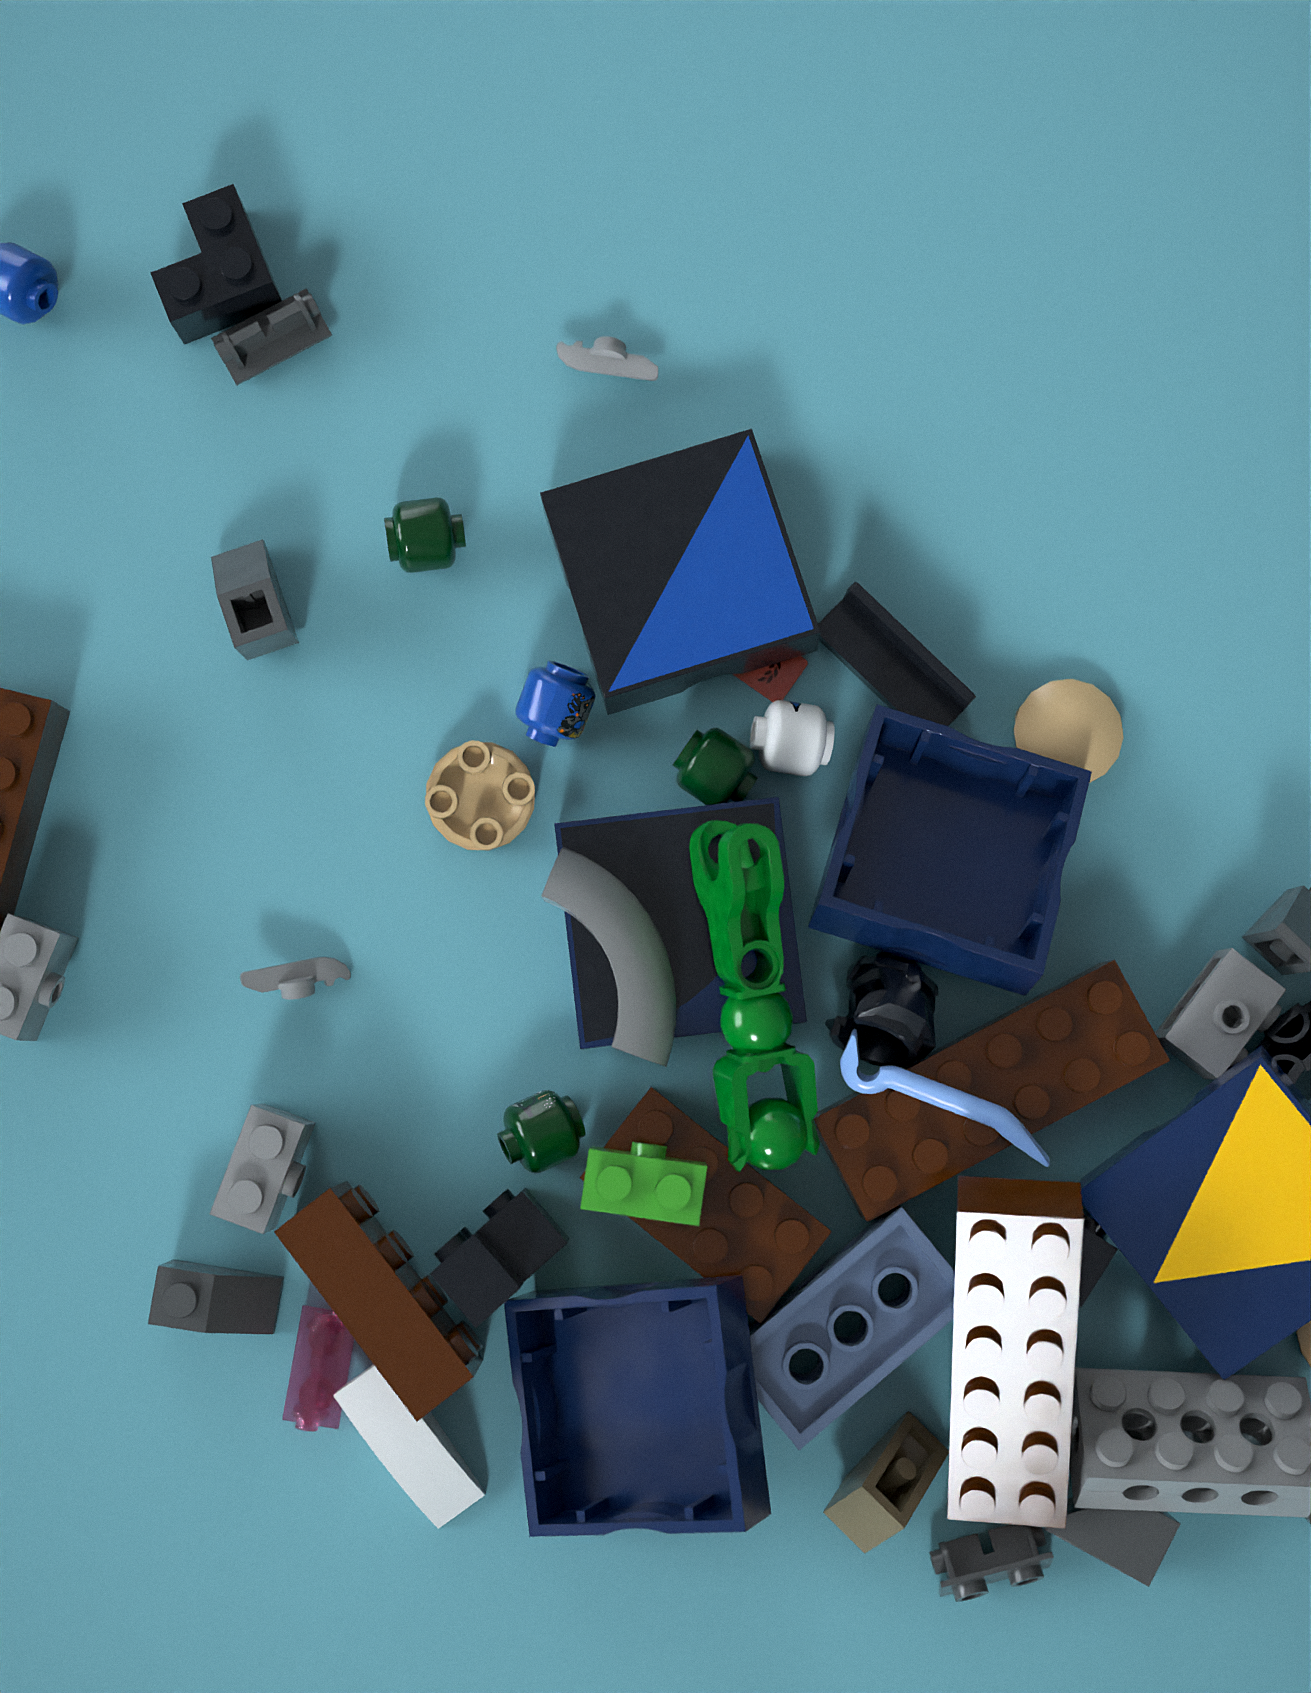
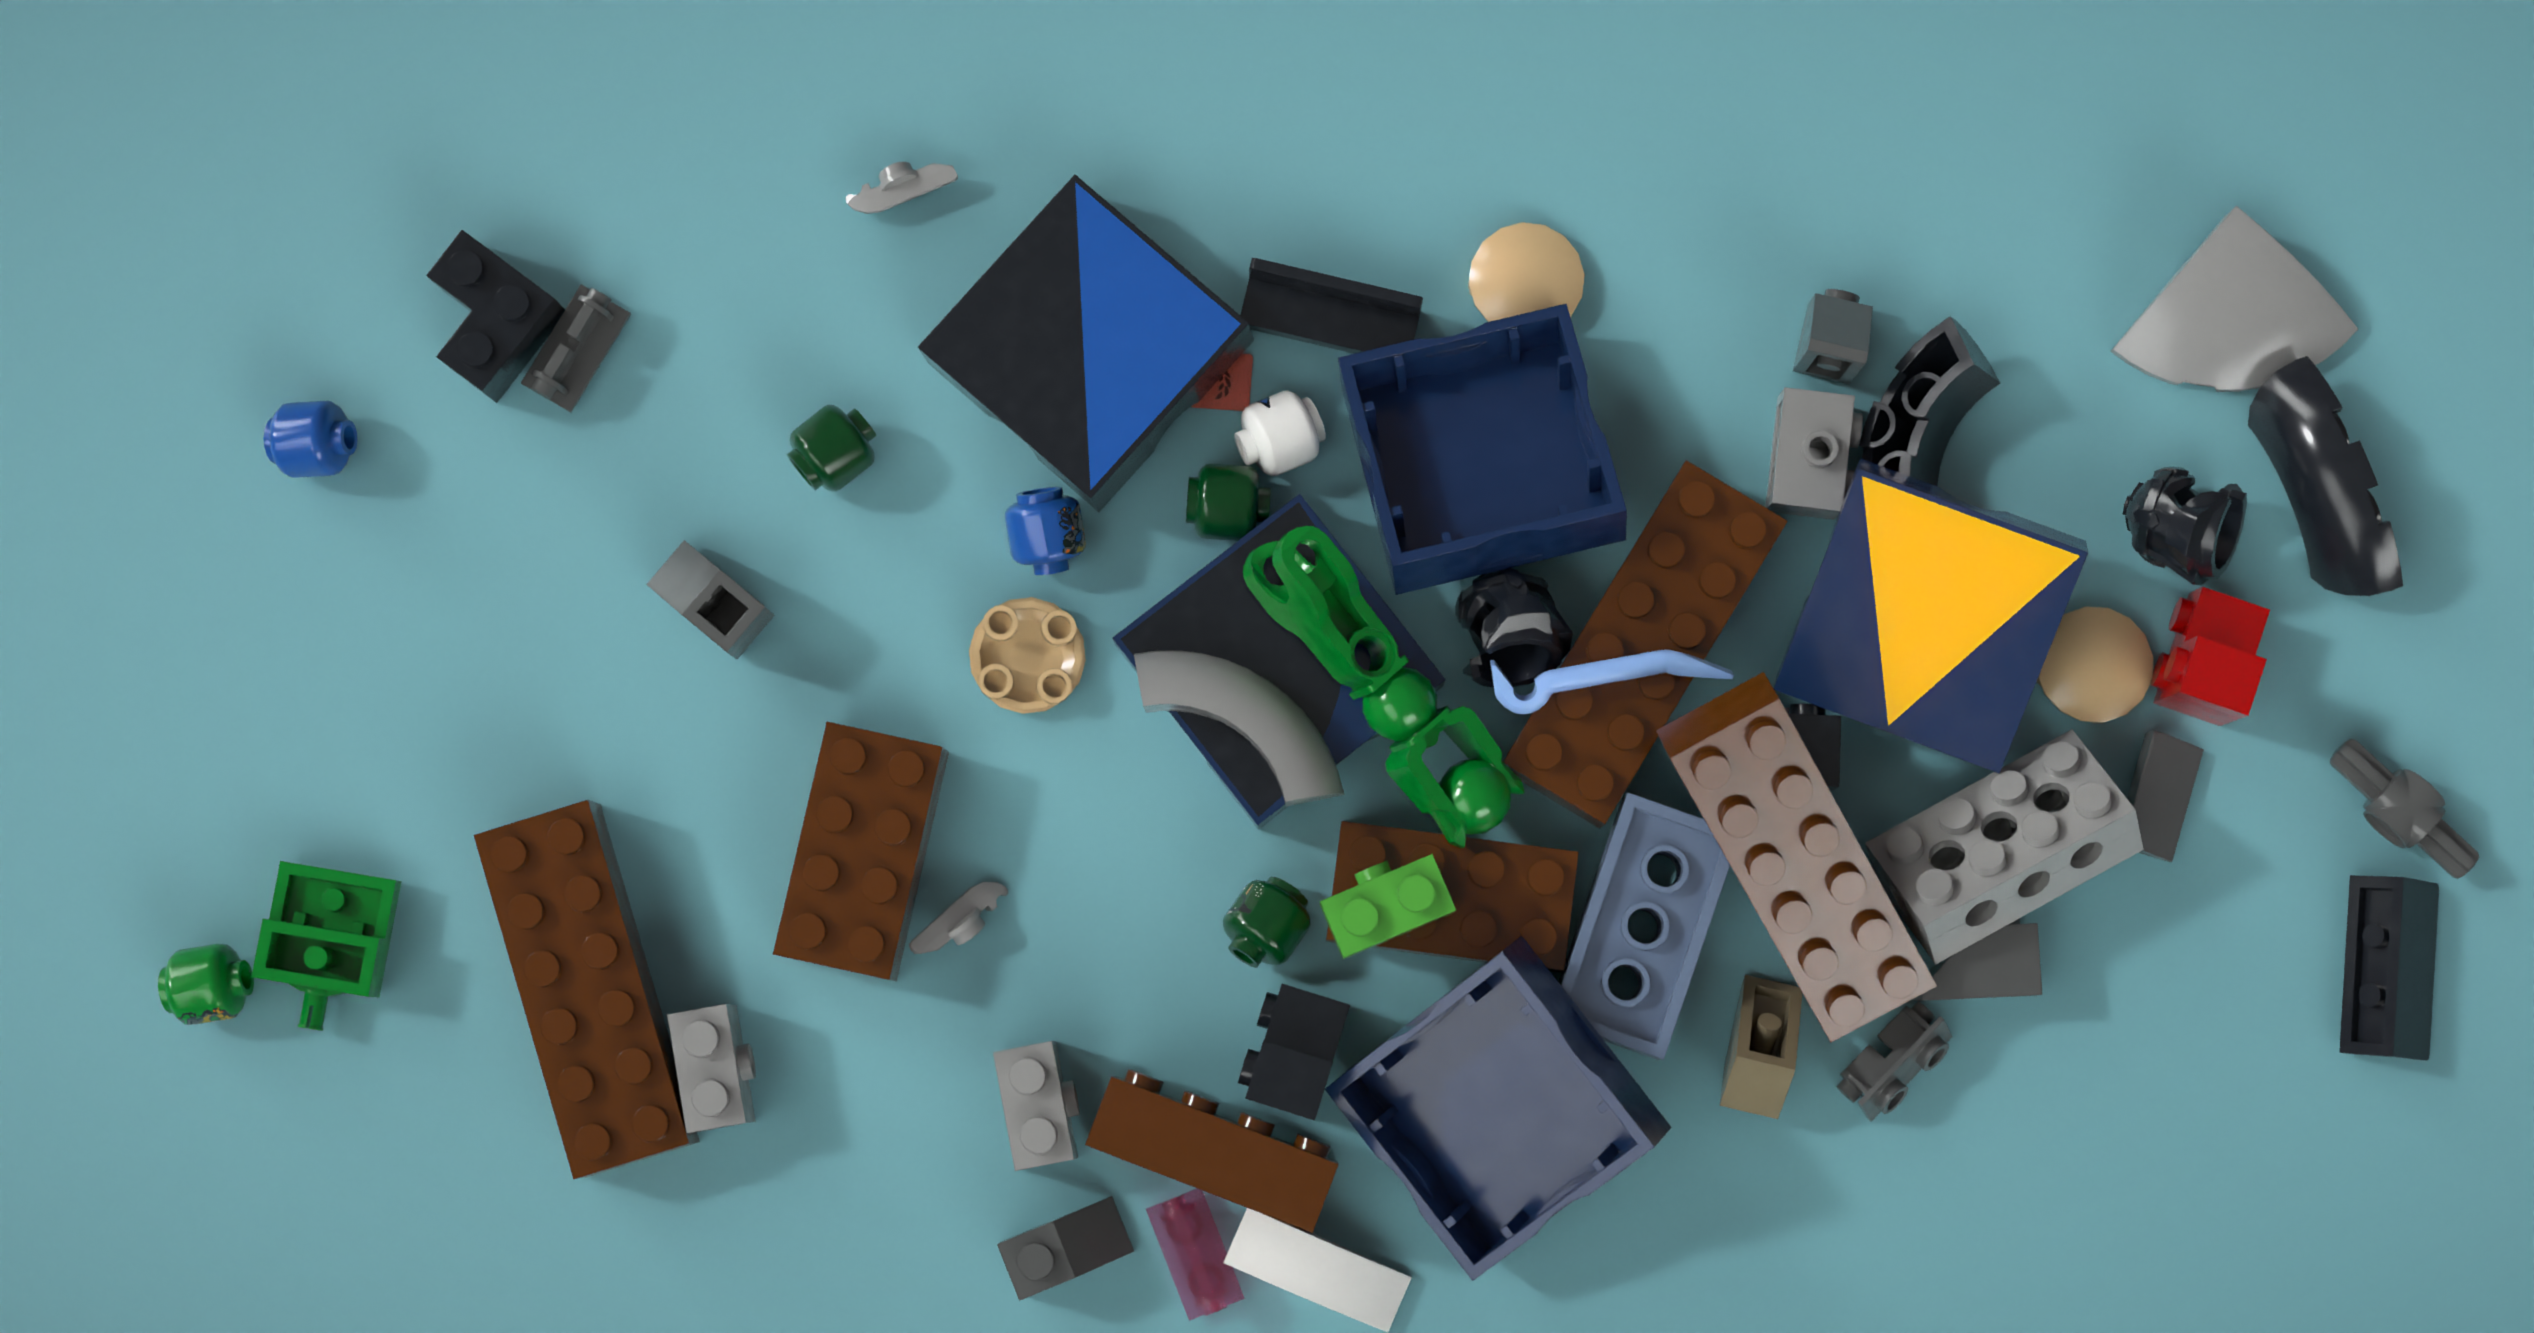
camera: 25 degrees left, 0 degrees up
(247, 876) = (861, 851): none -> reddish brown brick

